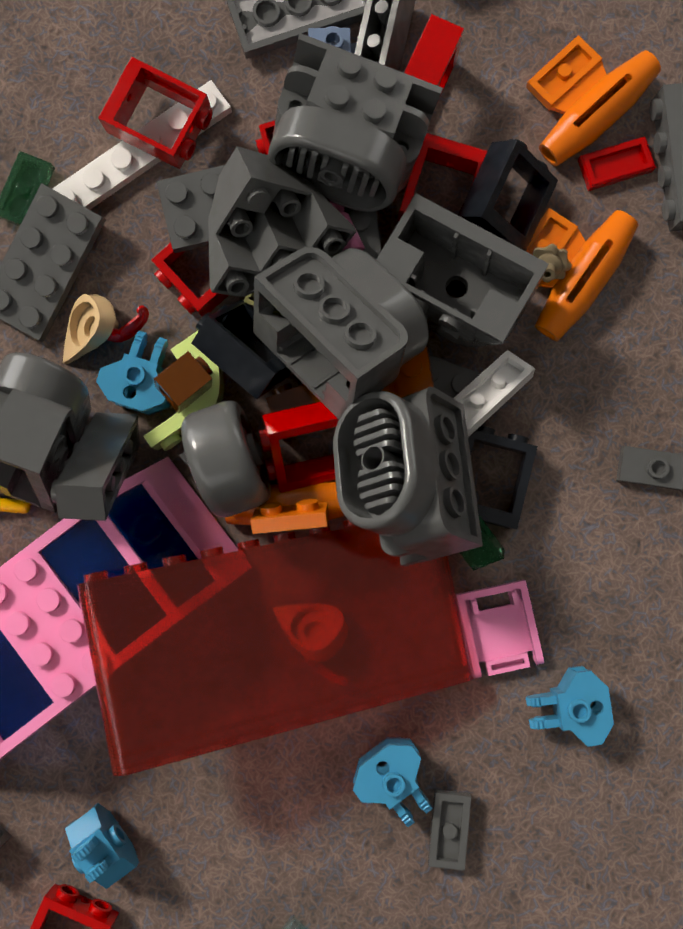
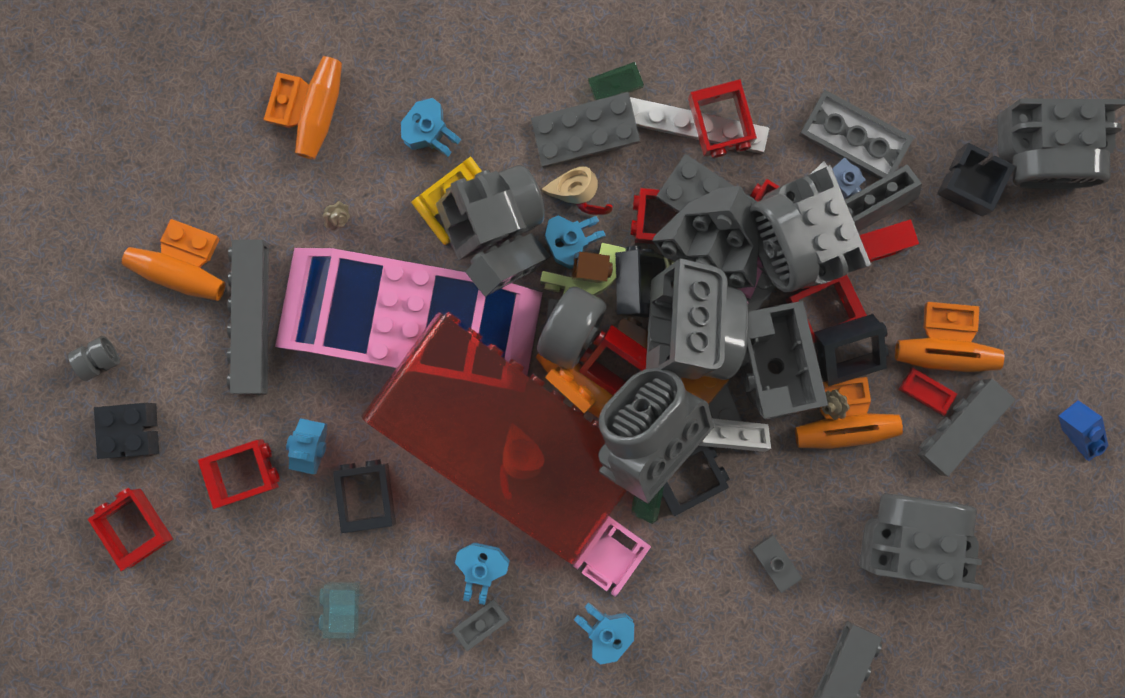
camera: 45 degrees right, 0 degrees up
(229, 808) = (365, 523): none -> black window

